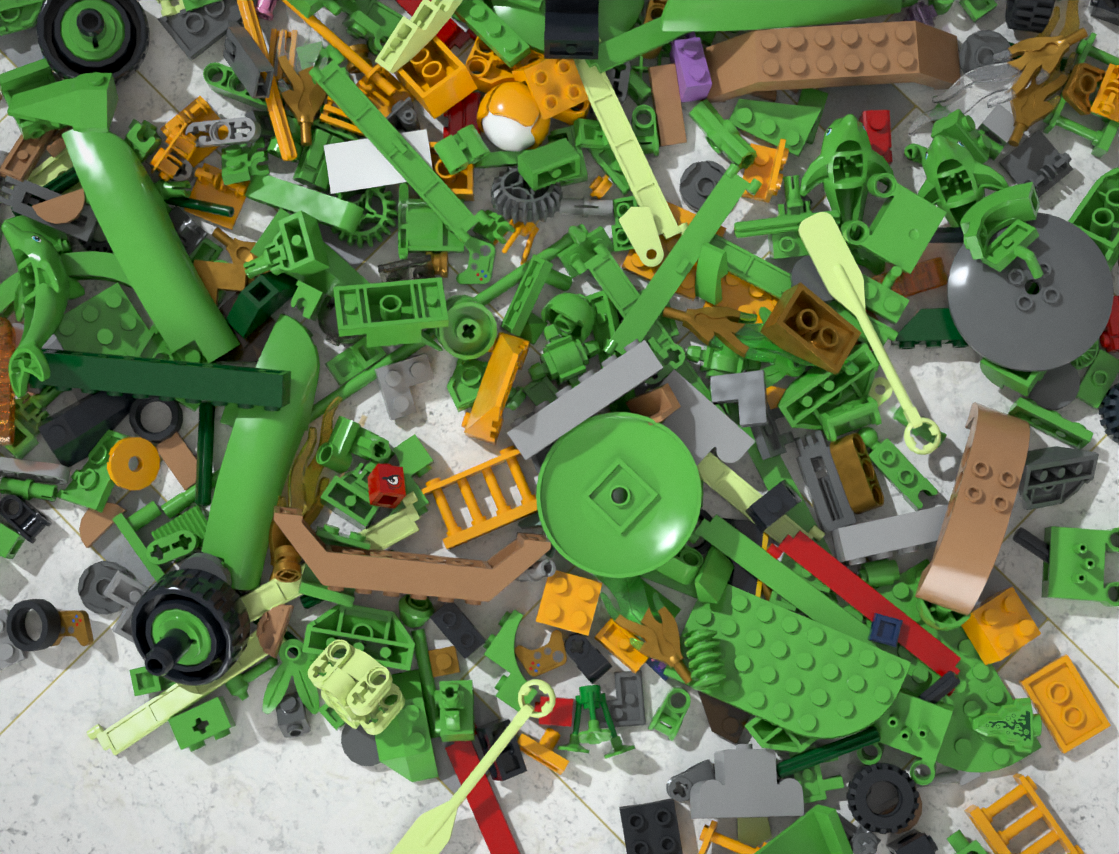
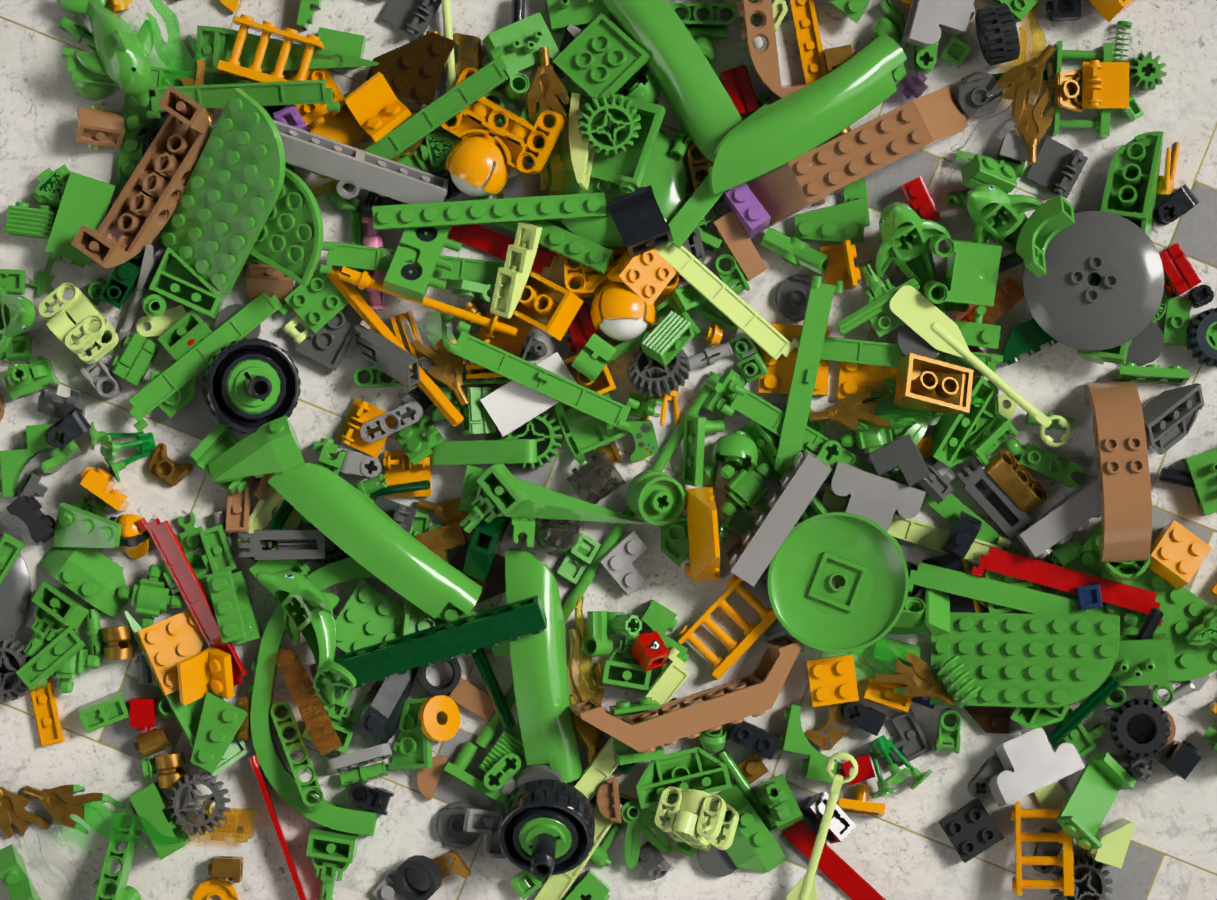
camera: 25 degrees left, 5 degrees up
(62, 208) = (295, 542): medium nougat tile -> none
(182, 142) = (359, 446): light orange hinge -> none
(287, 565) = (600, 745): pearl gold wheel -> none
(391, 310) = (596, 512): bright green brick -> none
(538, 571) = (800, 665): light grey pin -> none
(642, 233) = (766, 362): yellowish green piece -> none
(655, 403) = (834, 498): medium nougat panel -> none
(709, 271) = (832, 371): bright green slope -> none
(1014, 243) = (1064, 253): bright green plate -> none

